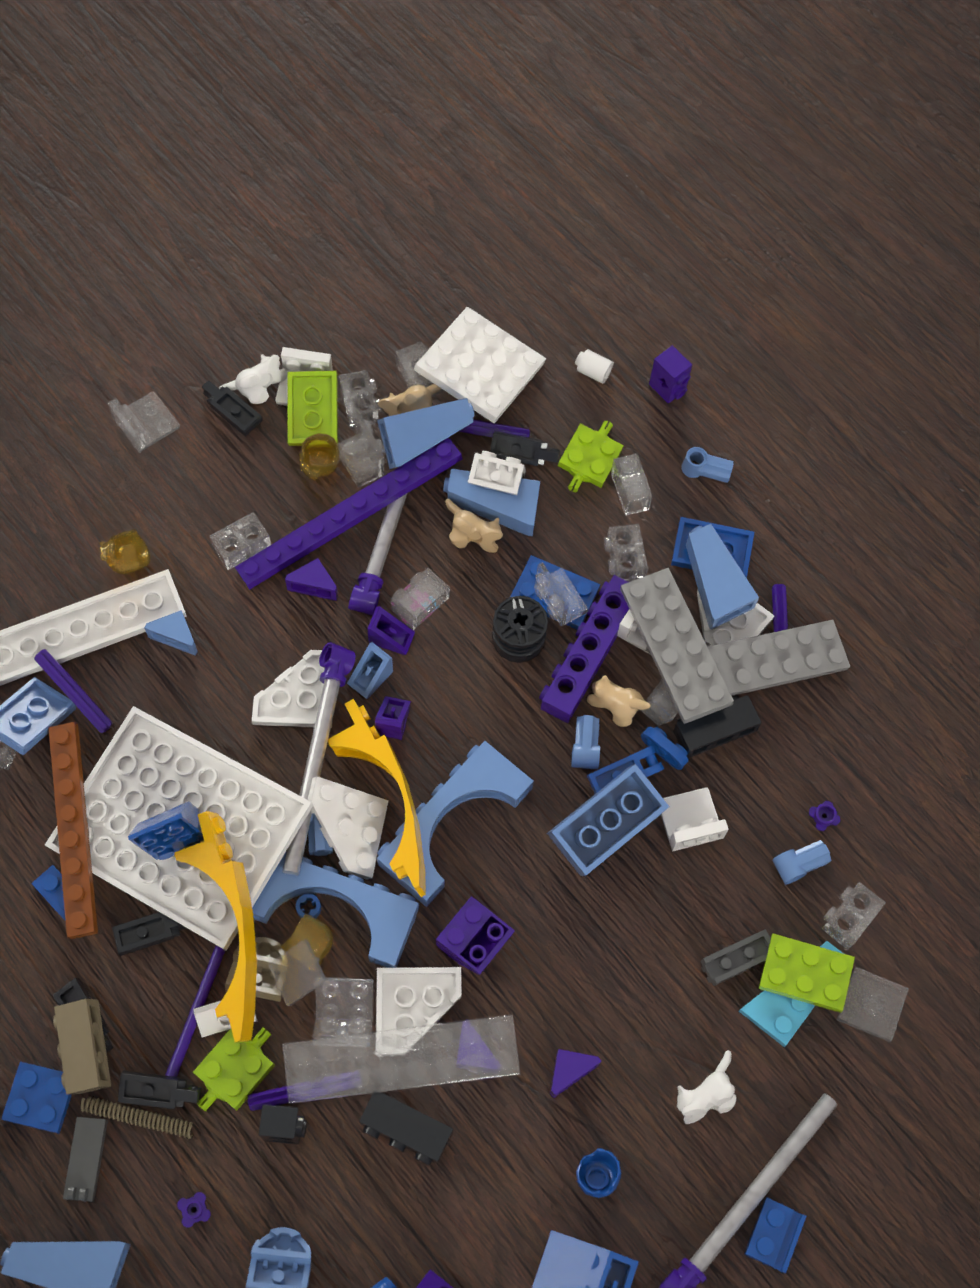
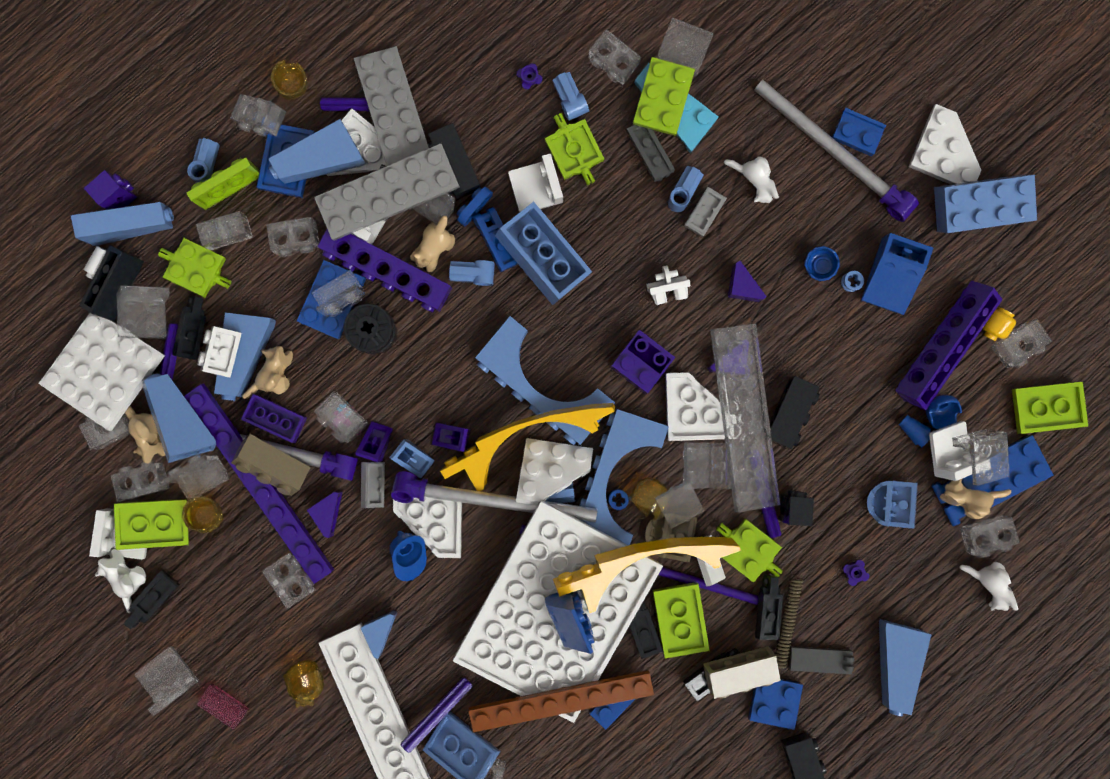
camera: 90 degrees left, 20 degrees up
(108, 475) = (223, 706): none -> clear pink plate
(154, 977) = (681, 620): none -> lime plate
(257, 664) = (408, 555): none -> blue piece
(342, 629) = (372, 484): none -> light grey plate
(369, 521) = (270, 465): none -> dark tan brick
(422, 530) = (274, 418): none -> dark purple piece
(541, 402) = (141, 312): none -> clear bracket
(566, 962) = (659, 289): none -> white hips
(572, 375) = (115, 270): none -> black brick
(579, 1228) = (858, 278): none -> medium blue bush
(637, 385) = (121, 223): none -> medium blue slope
(664, 1024) = (705, 212): none -> light grey plate
(682, 482) = (224, 183): none -> lime plate
(694, 1000) = (685, 188): none -> medium blue piece
(737, 865) = (574, 149): none -> lime plate
(759, 517) = (257, 115): none -> clear brick
(802, 550) = (289, 80): none -> clear yellow helmet

